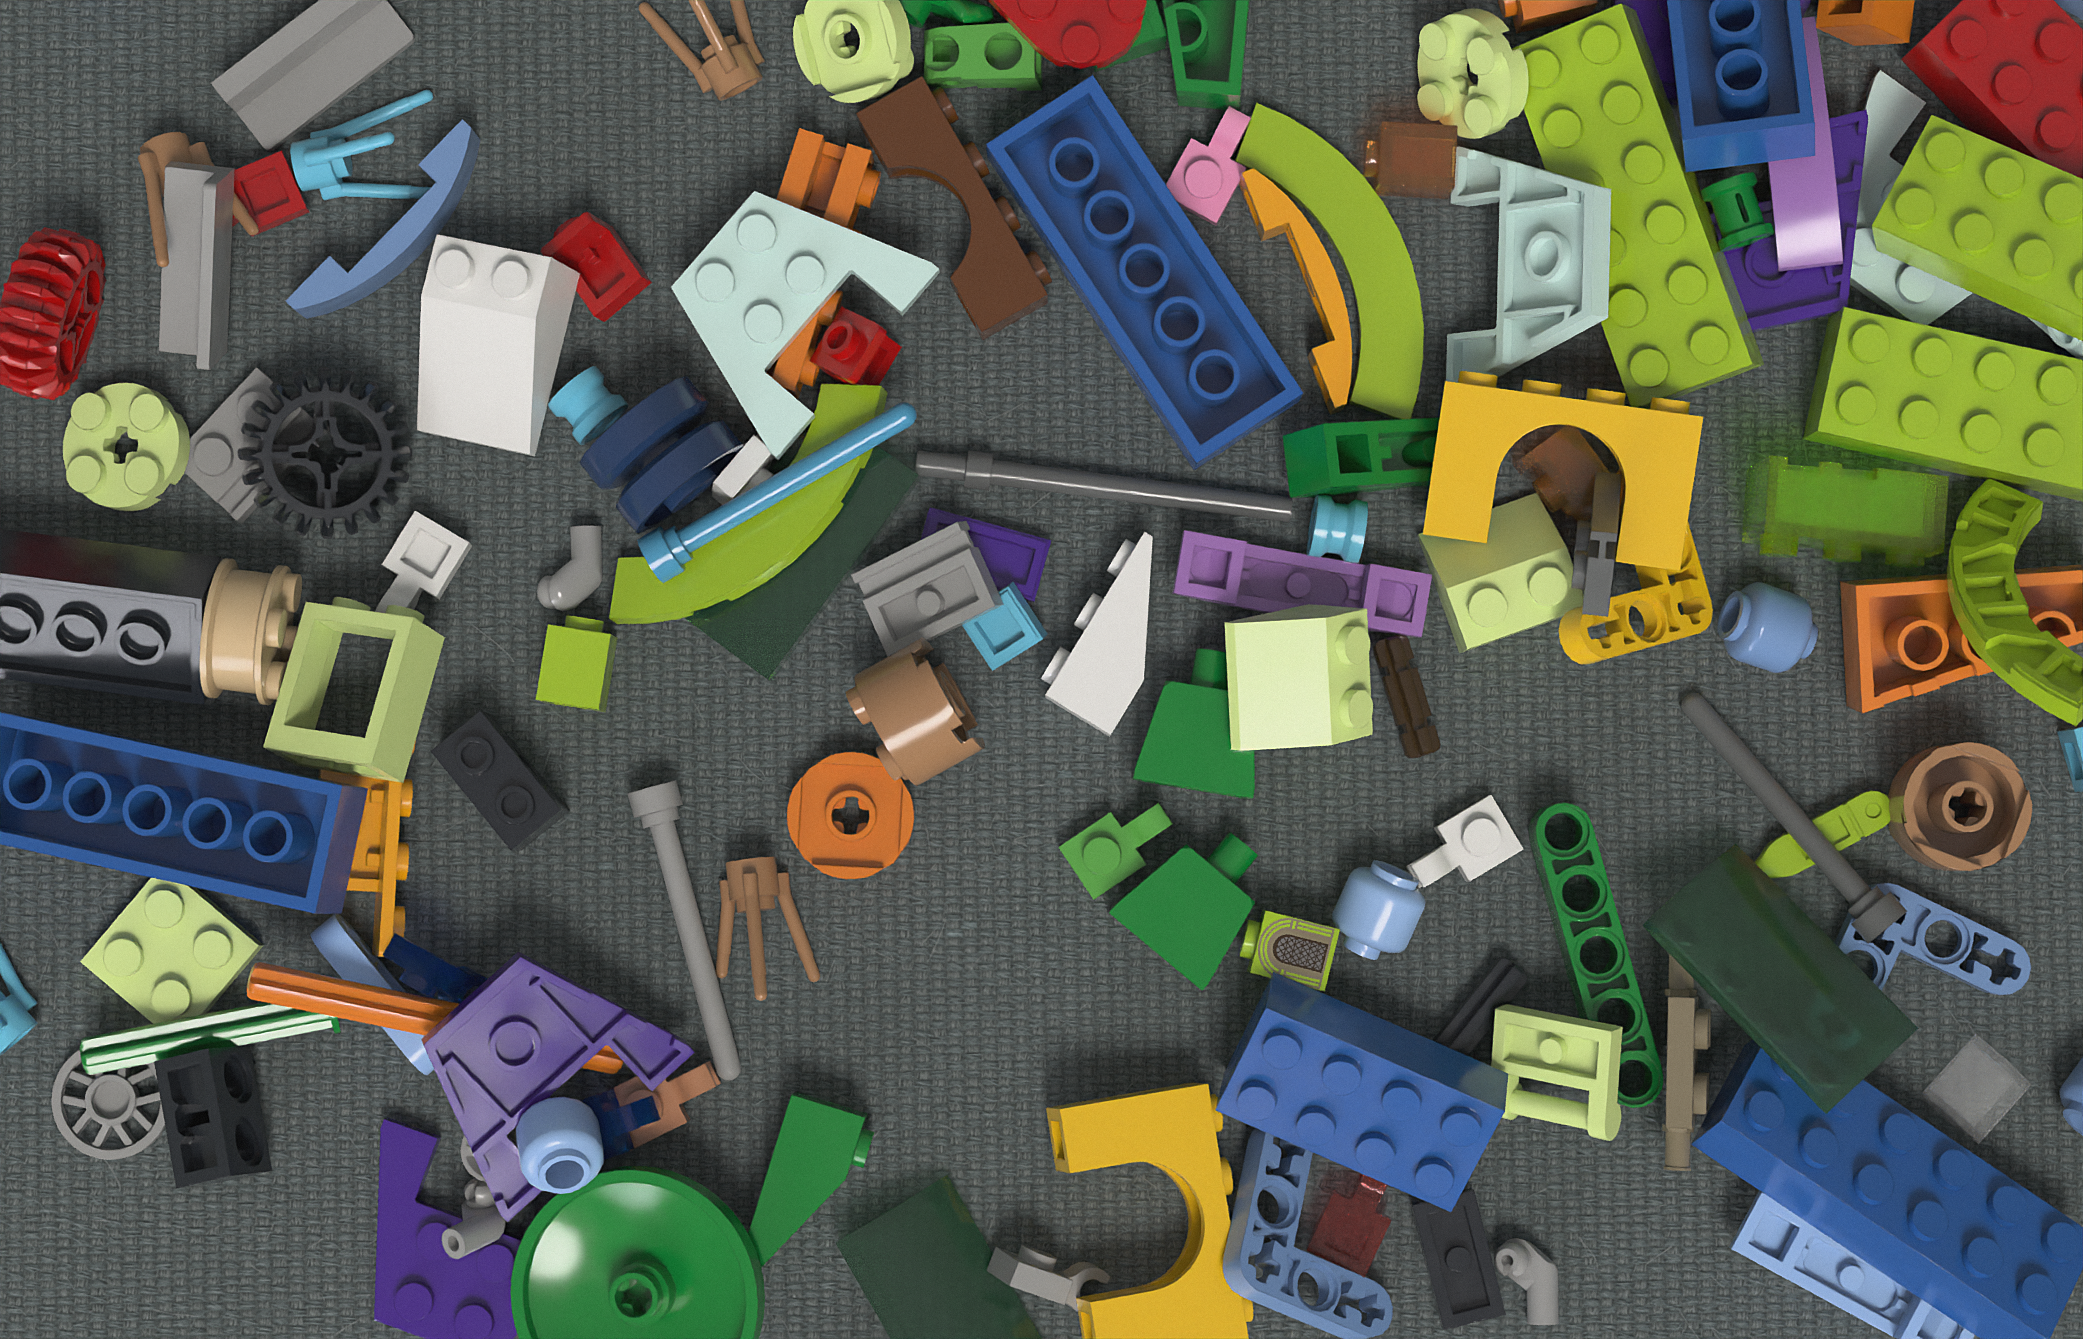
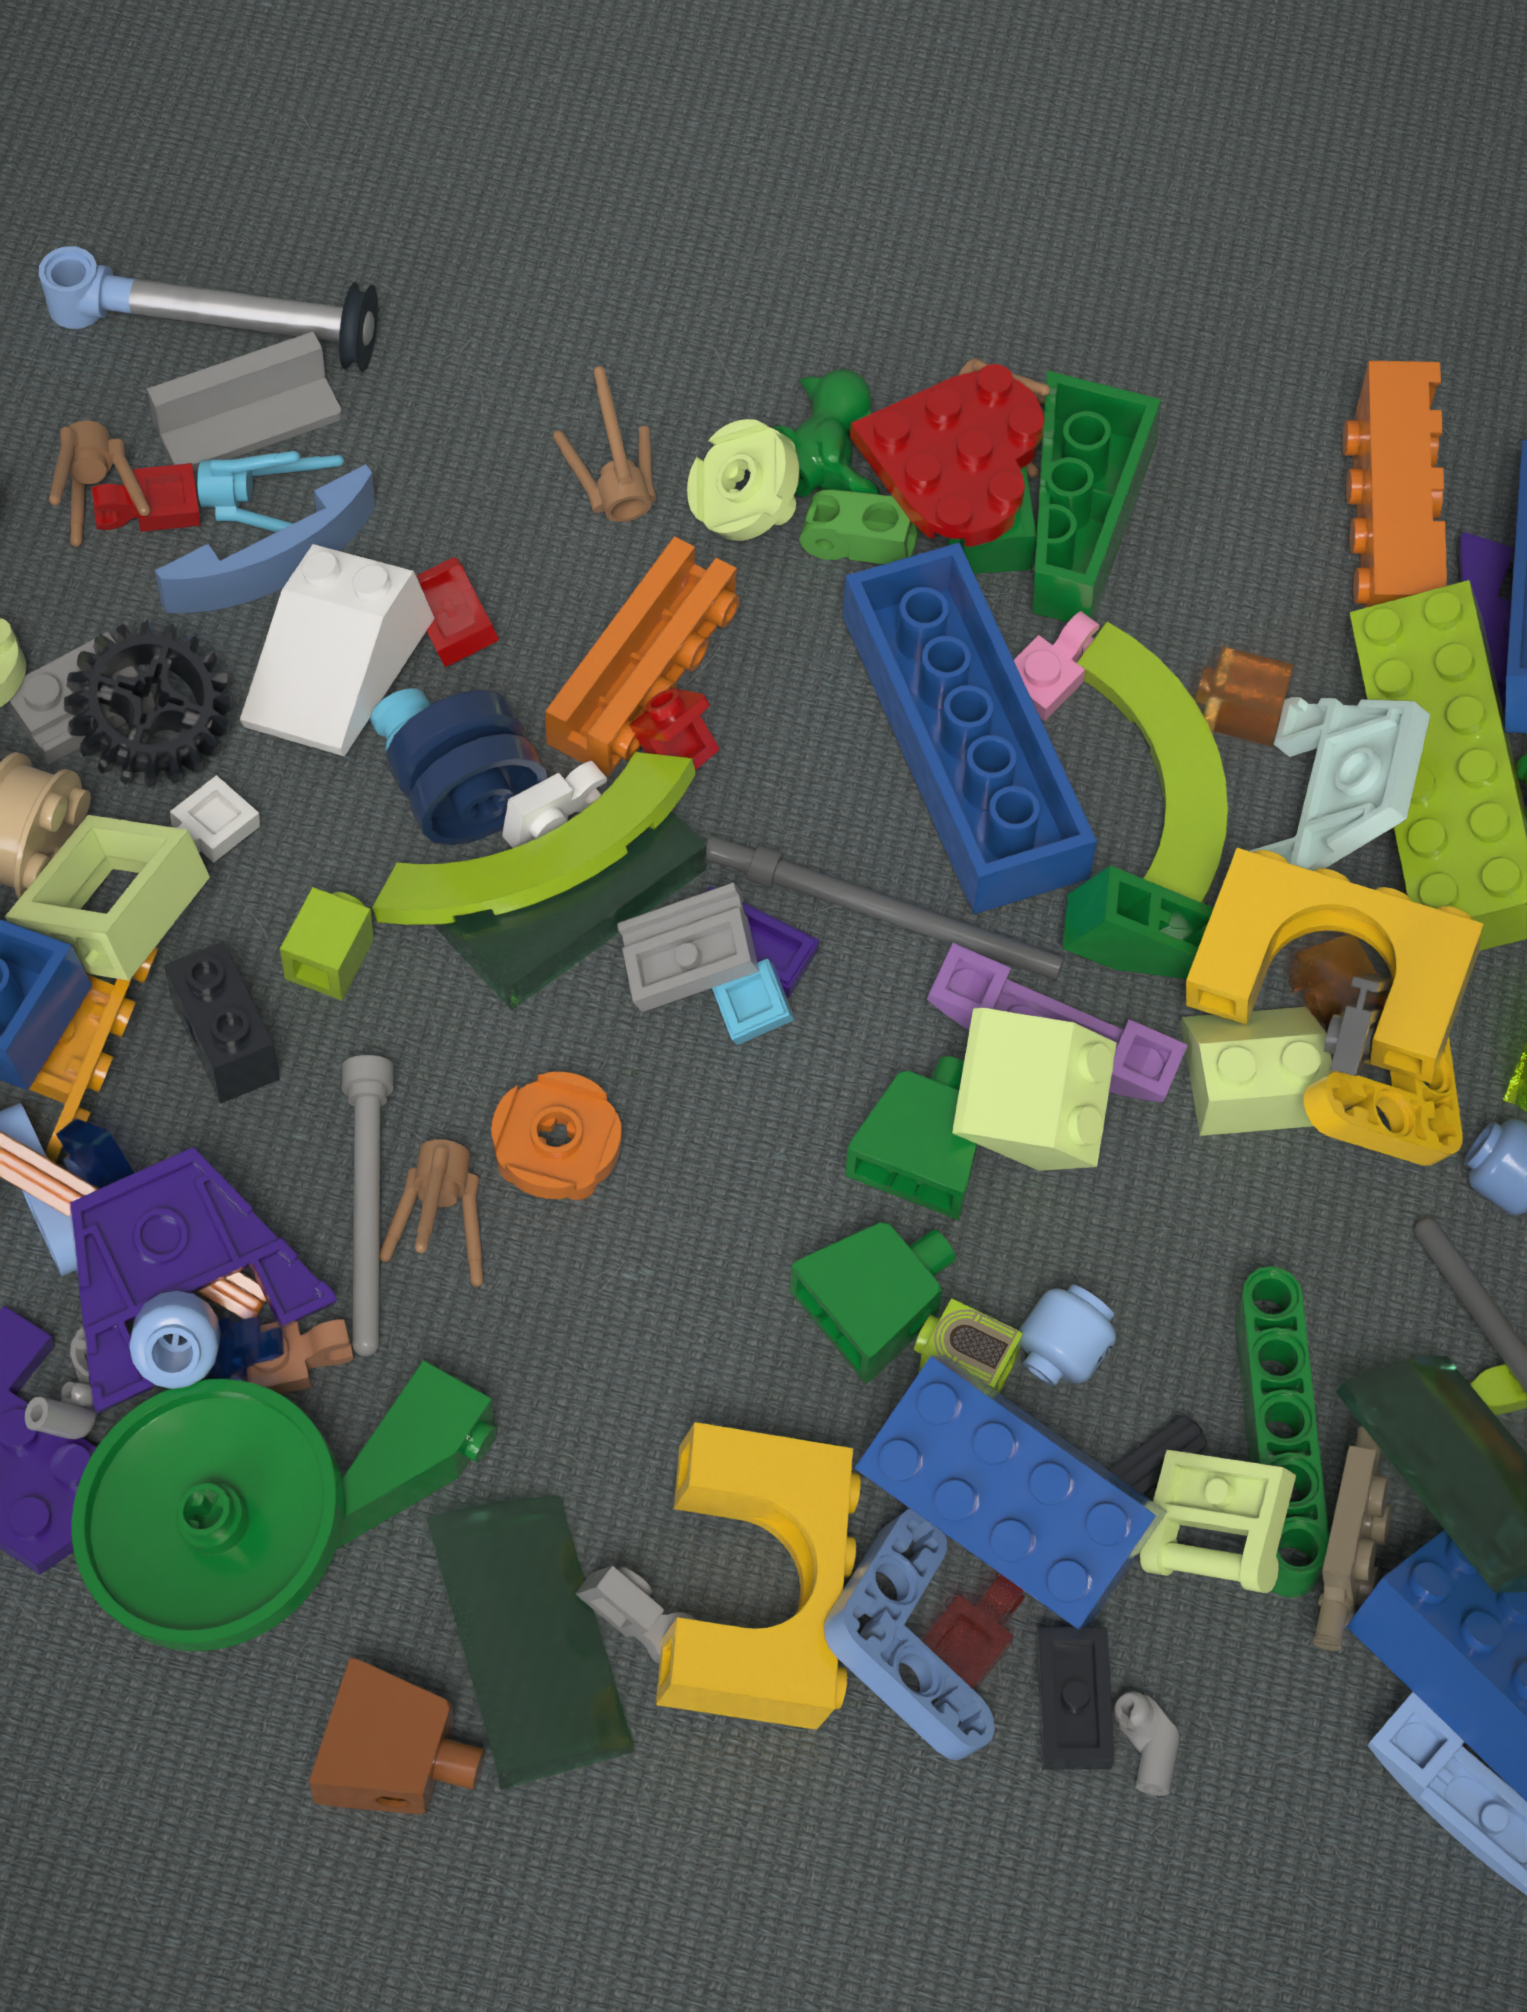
camera: 10 degrees right, 25 degrees down
(199, 266) = (84, 526): light grey panel -> none
(578, 576) = (354, 870): light grey arm -> none
(672, 548) = (452, 849): dark azure piece -> none
(766, 283) = (610, 646): light aqua wing -> none
(915, 139) = (782, 584): reddish brown arch -> none
(915, 714) = (645, 1045): medium nougat brick -> none
(1108, 852) = (807, 1225): bright green plate -> none
(1109, 658) = (845, 1052): white slope -> none
(1277, 214) = (1109, 717): light orange slope -> none
(1337, 528) = (1102, 986): medium azure wheel -> none
(1406, 696) = (1138, 1155): dark brown axle -> none
(1446, 89) = (1345, 624): yellowish green plate -> none
(1471, 842) = (1174, 1301): white plate -> none

